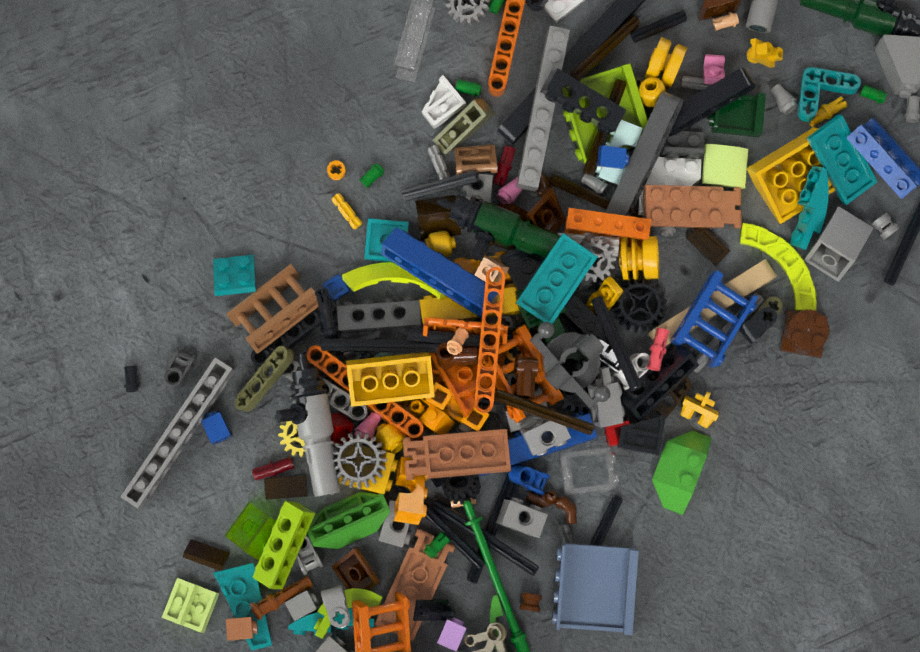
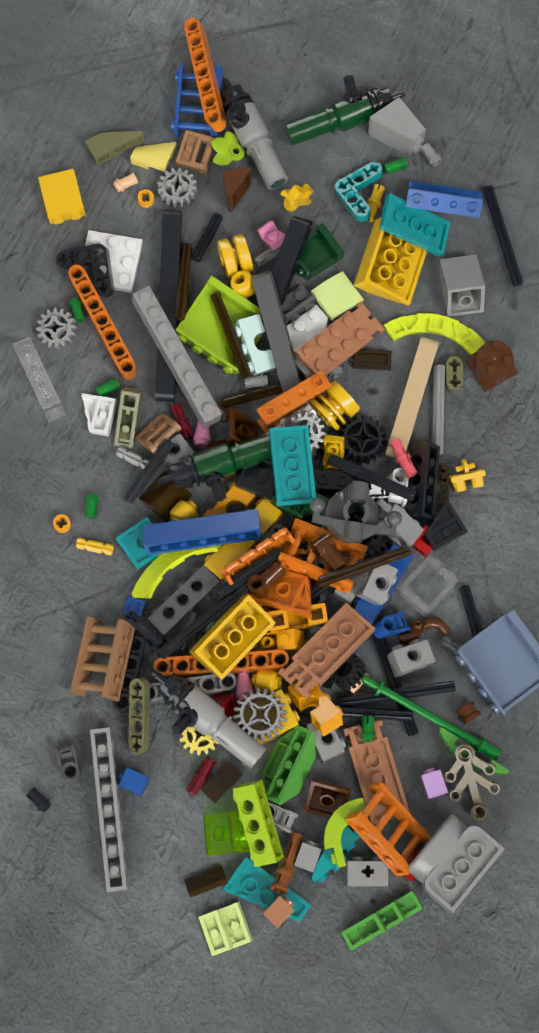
camera: 40 degrees left, 5 degrees down
(234, 275) = (52, 659): teal plate -> none
(335, 602) = (334, 829): light grey piece -> none
(433, 610) = (405, 777): black hinge -> none
(455, 345) = (260, 572): light nougat pin -> none
(486, 264) = (239, 499): light nougat brick -> none
(486, 349) = (291, 551): orange beam -> none
(611, 112) = (227, 319): black brick -> none
(612, 157) = (255, 350): blue brick -> none
(680, 469) = (491, 530): bright green wedge -> none
(693, 318) = (408, 415): blue fence -> none
(725, 21) = (251, 196): light nougat pin -> none
(756, 326) = (456, 386): black piece -> none
(784, 100) = (338, 217): light grey cone -> none
(815, 202) = (420, 268): teal slope -> none
(883, 221) = (478, 246): light grey wheel -> none

